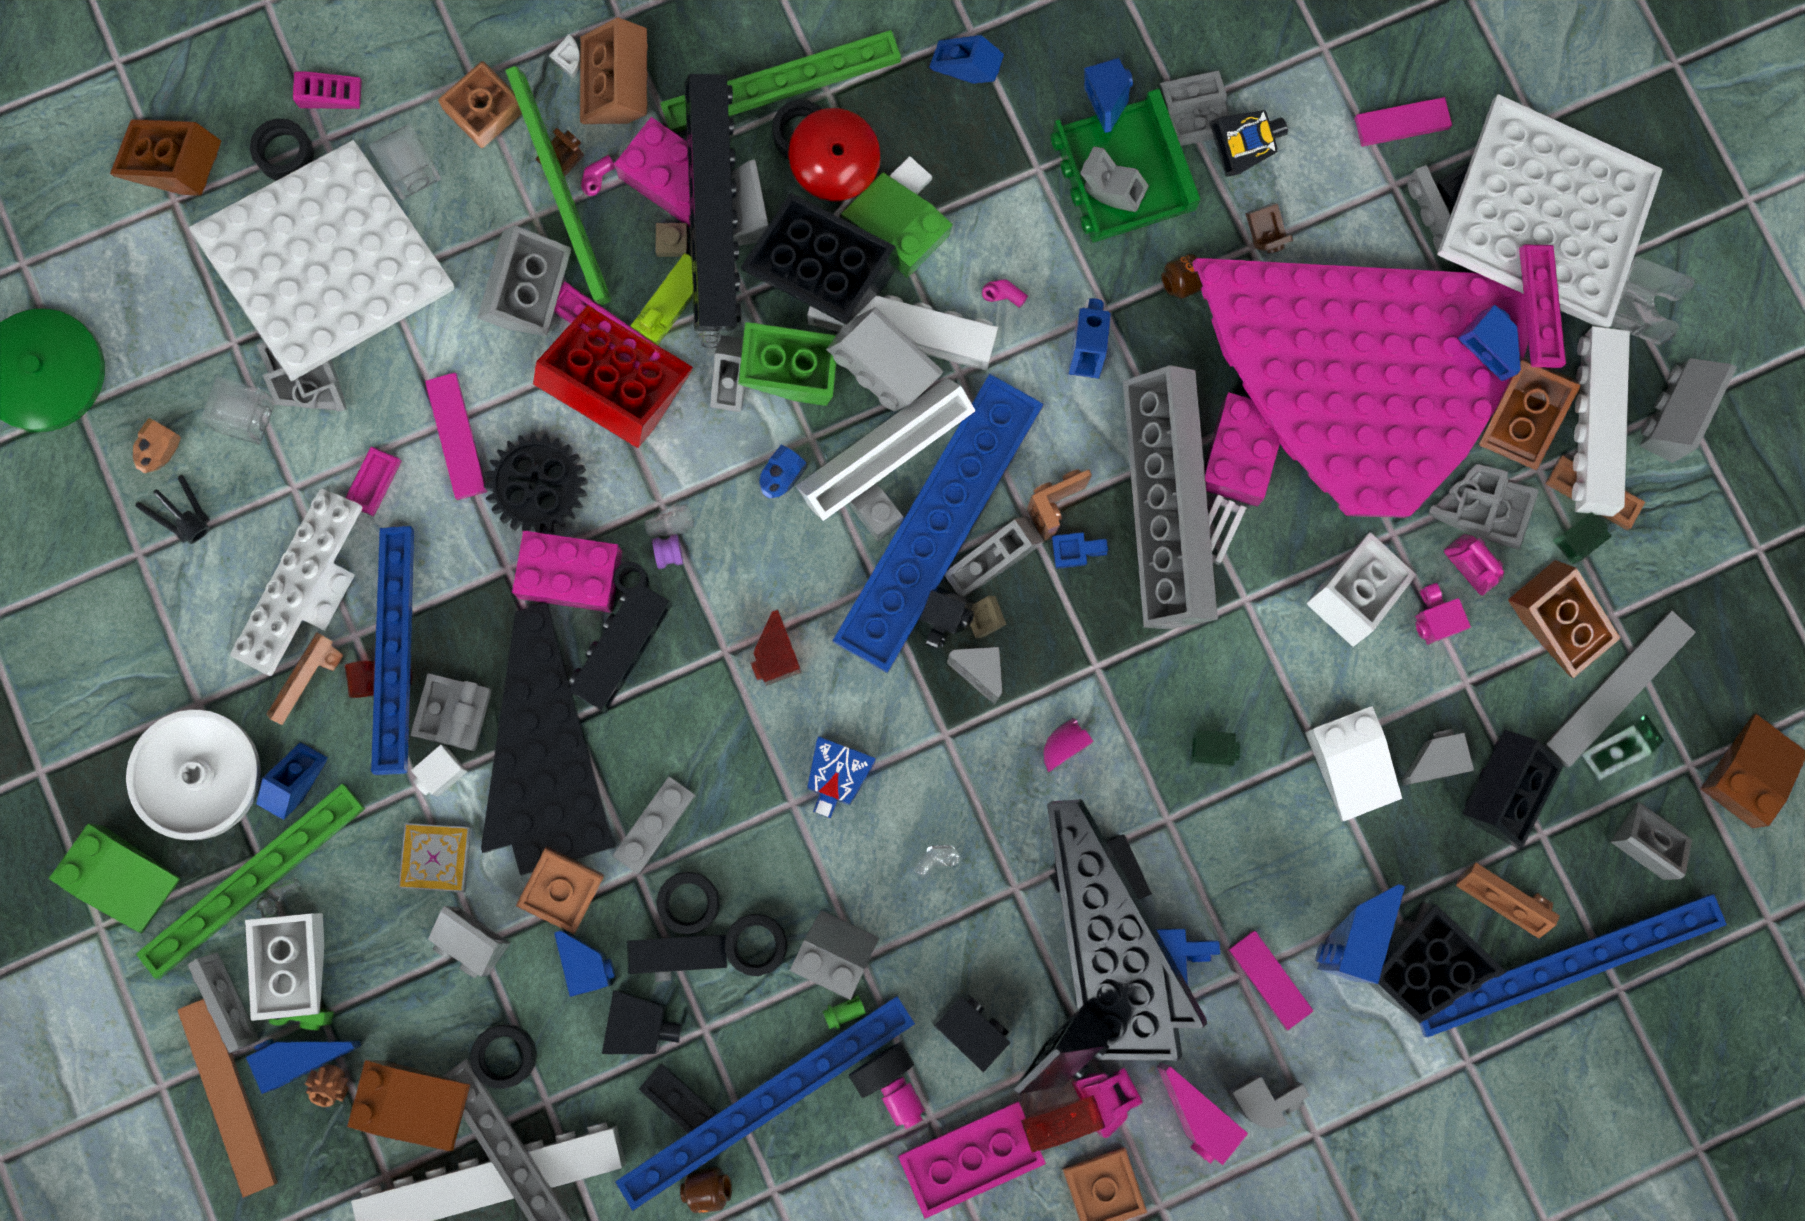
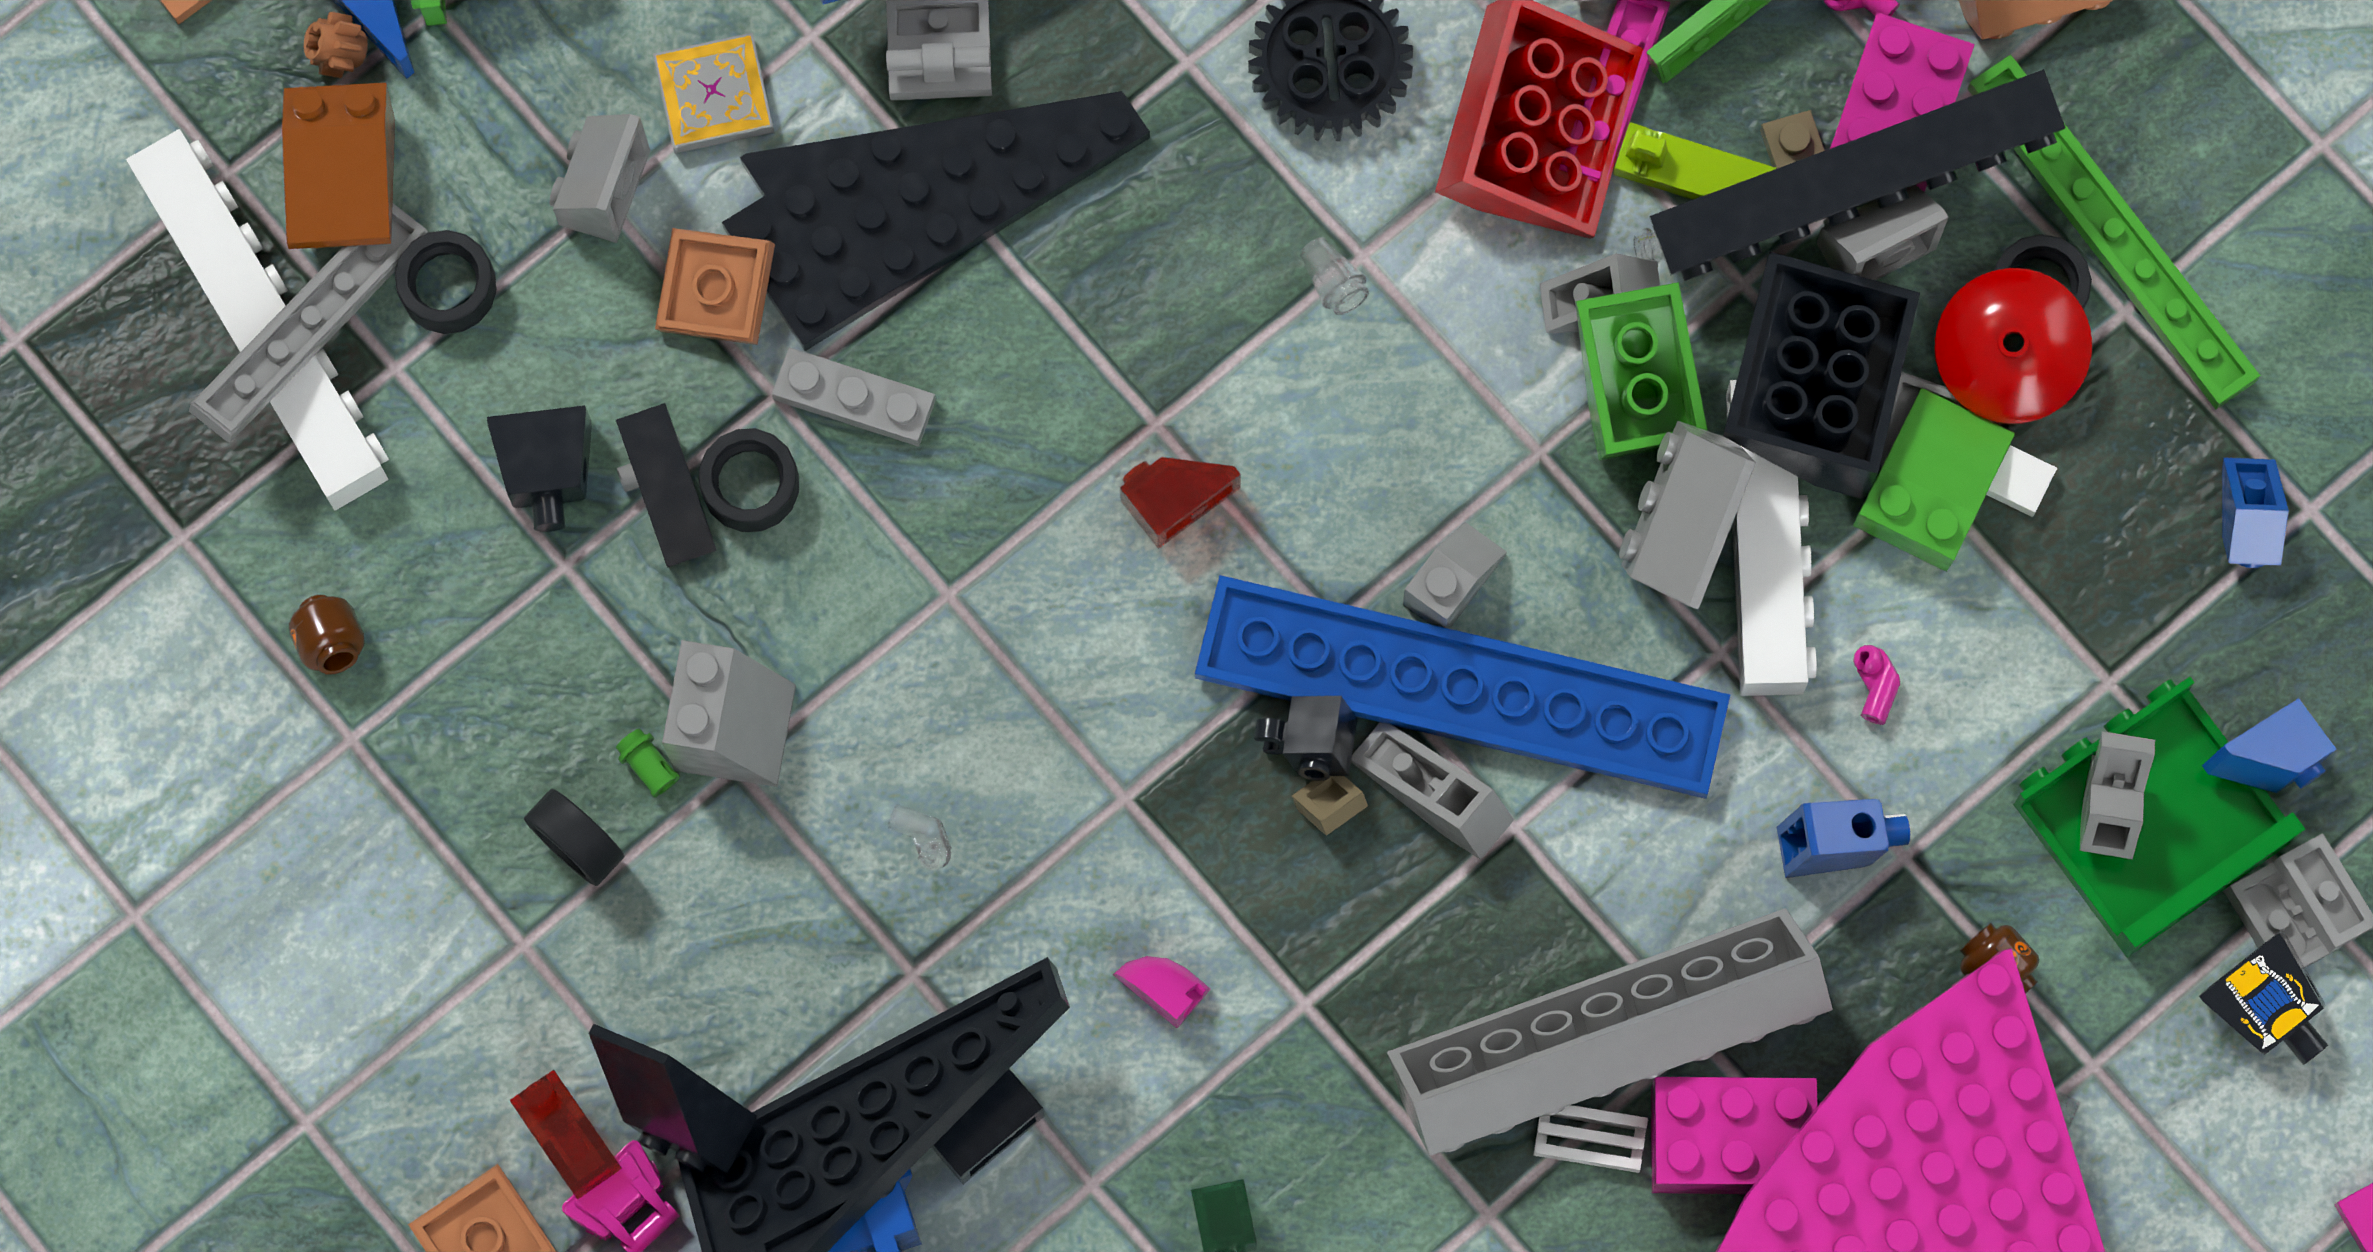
camera: 80 degrees right, 5 degrees down
(438, 771) = (843, 55): white brick -> none
(566, 571) = (1206, 147): dark pink brick -> none
(583, 965) = (612, 353): blue slope -> none
(622, 643) = (1121, 261): black hinge -> none
(667, 551) = (1285, 286): medium lavender wheel -> none
(676, 1099) = (439, 571): black plate -> none
(732, 951) = (705, 561): black tyre -> none
(764, 1103) = (481, 682): blue plate -> none
(781, 472) = (1465, 421): blue rock -> none
(837, 775) = (1010, 644): blue torso -> none
(885, 448) = (1552, 565): white brick -> none
(902, 1103) = (533, 888): dark pink brick -> none
(969, 1160) = (473, 1015): dark pink plate -> none
(971, 1032) = (668, 956): black brick -> none
(980, 669) = (1239, 814): light grey slope -> none
(1042, 504) = (1549, 830): nougat bracket -> none
(1071, 550) = (1482, 910): blue plate -> none
(1268, 228) = (2128, 1079): reddish brown bracket -> none

